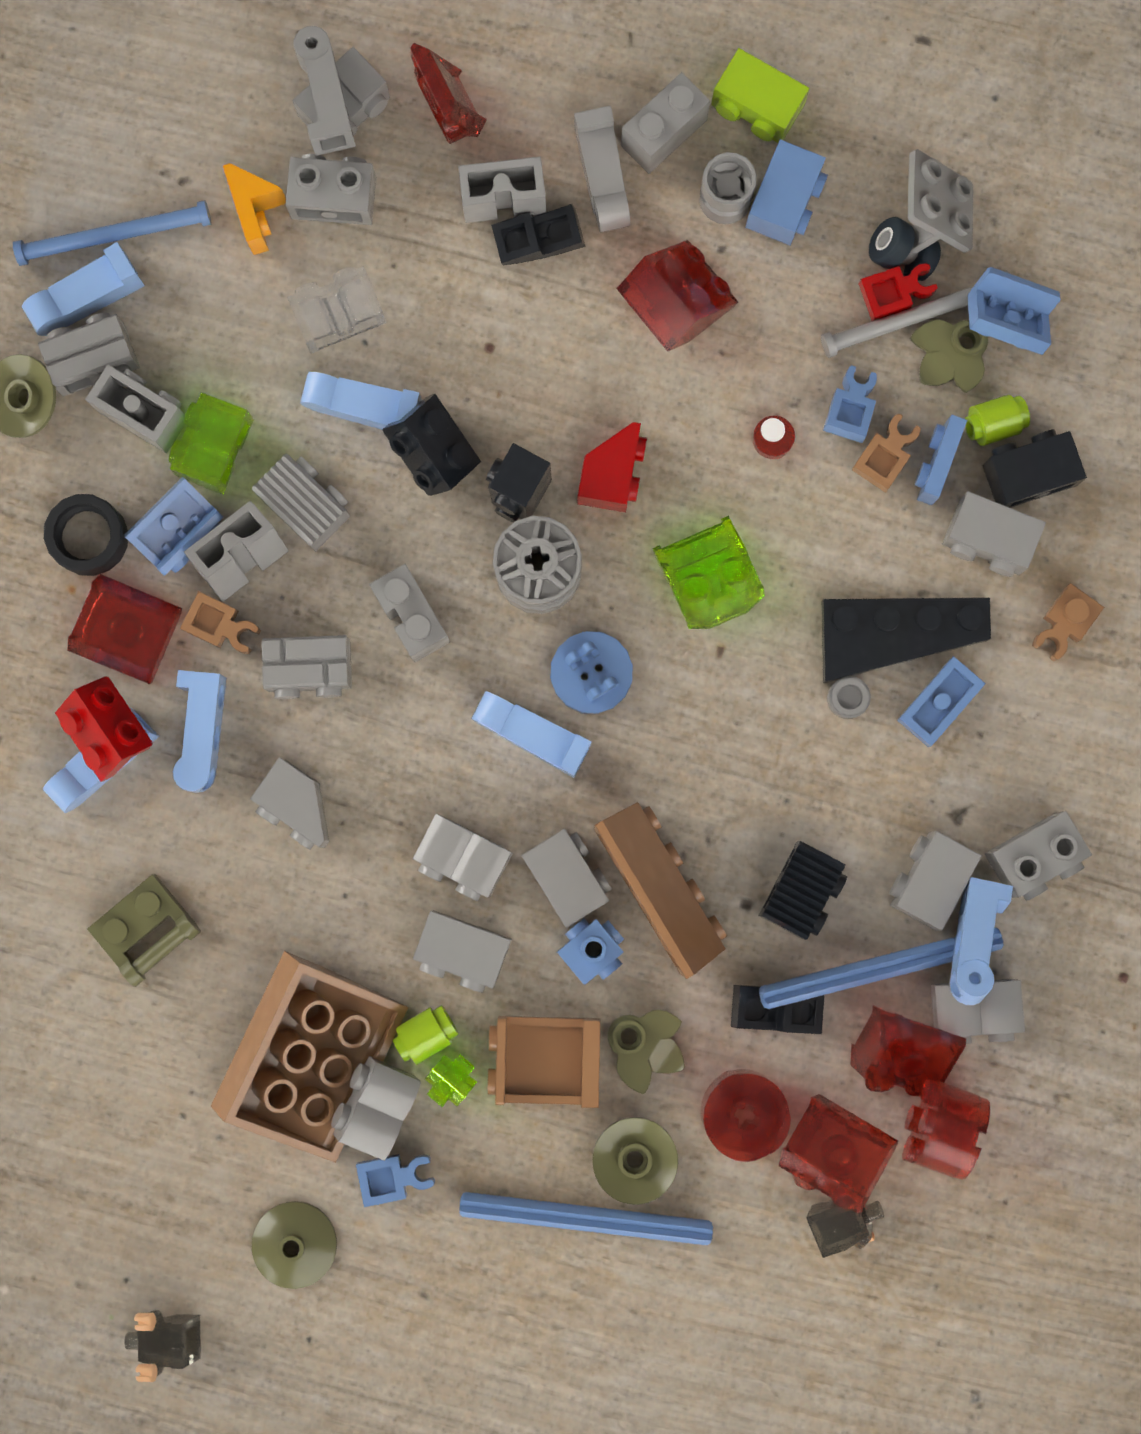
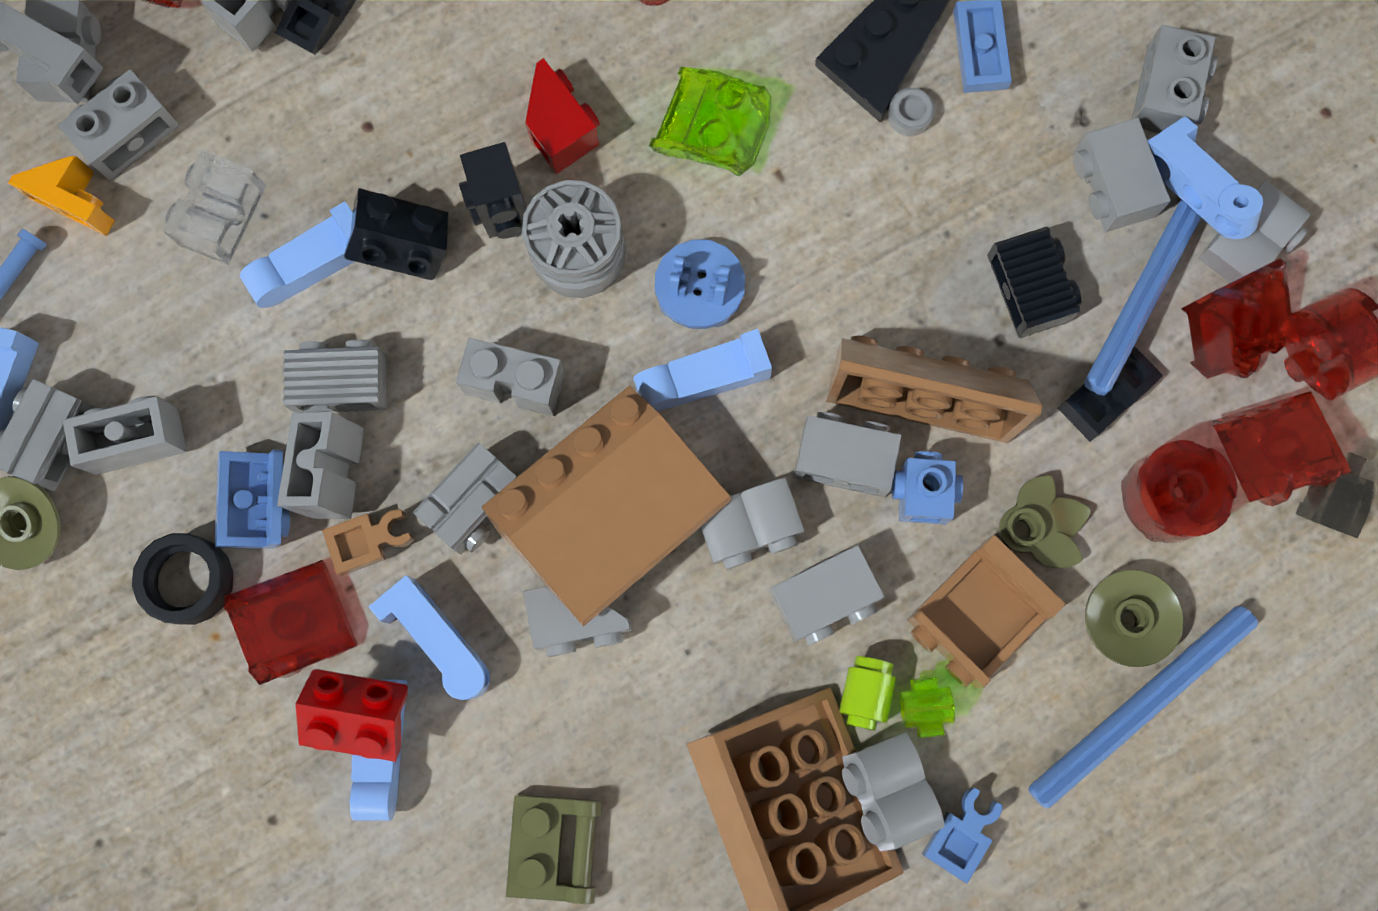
camera: 45 degrees left, 5 degrees down
(210, 442) = (213, 405): clear neon green brick -> none
(382, 756) = (606, 504): none -> medium nougat slope

